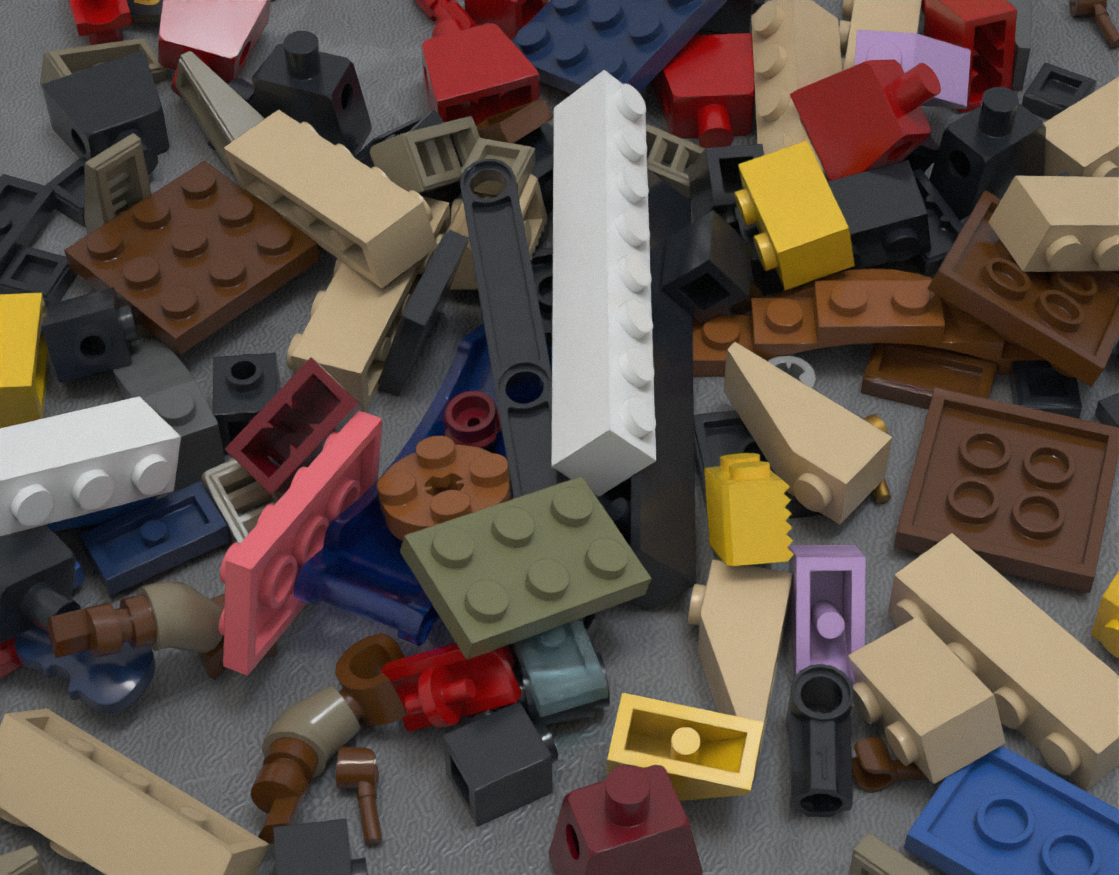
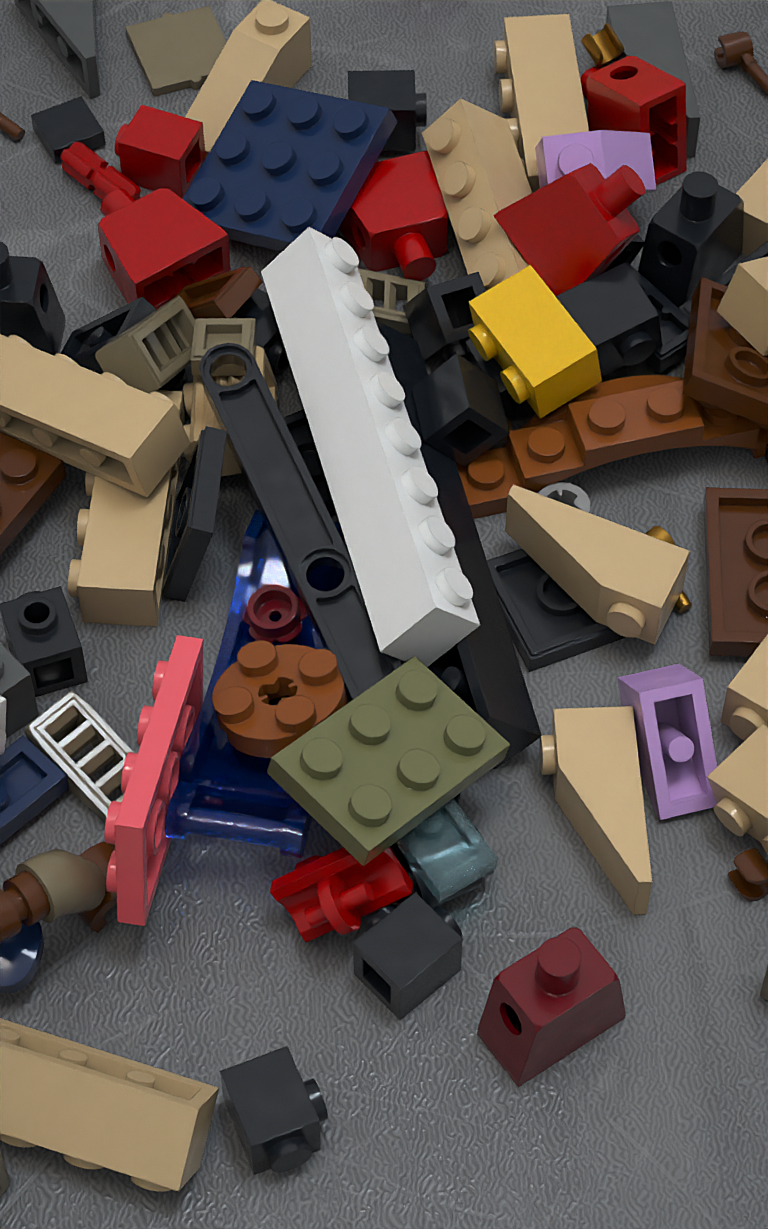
camera: 15 degrees left, 5 degrees up
(293, 427) = (115, 665): dark red torso -> none
(322, 723) = (223, 958): reddish brown piece -> none
(358, 770) = (273, 992): reddish brown hand -> none
(700, 748) = (601, 899): yellow slope -> none
(747, 511) = (574, 654): yellow brick -> none
(820, 742) = (701, 866): black piece -> none
(912, 372) = (682, 474): reddish brown tile -> none
(1055, 91) = (732, 154): black tile -> none

